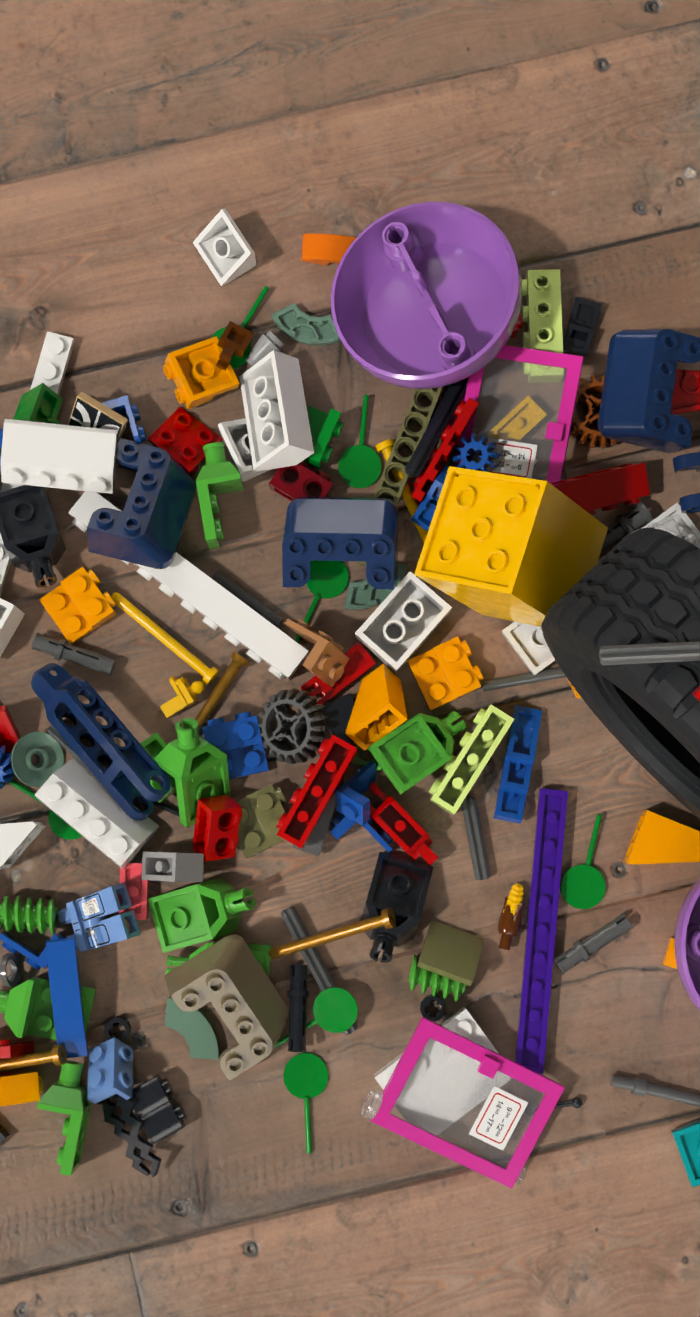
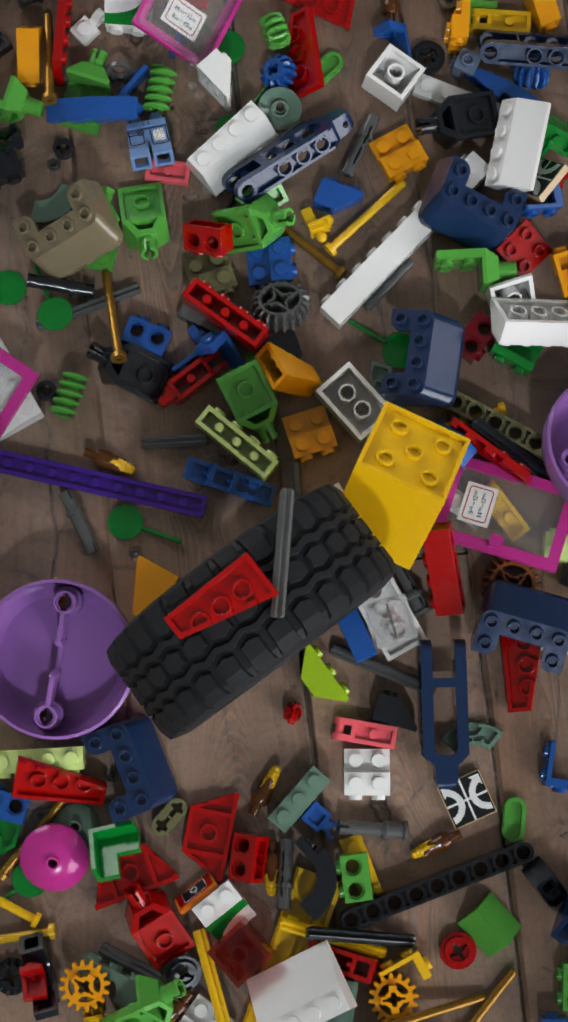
camera: 95 degrees right, 0 degrees up
(110, 1071) = (32, 137): medium blue bracket -> none
(144, 677) = (336, 197): none -> blue slope
(172, 866) = (181, 200): light grey brick -> none
(326, 657) = (332, 335): medium nougat bracket -> none
(357, 891) = (150, 331): none -> blue brick
(358, 664) = (318, 349): red hinge -> none
(360, 464) = (489, 388): green piece -> none
(451, 953) = (87, 407): olive slope -> none
(479, 447) = (480, 484): blue gear -> none

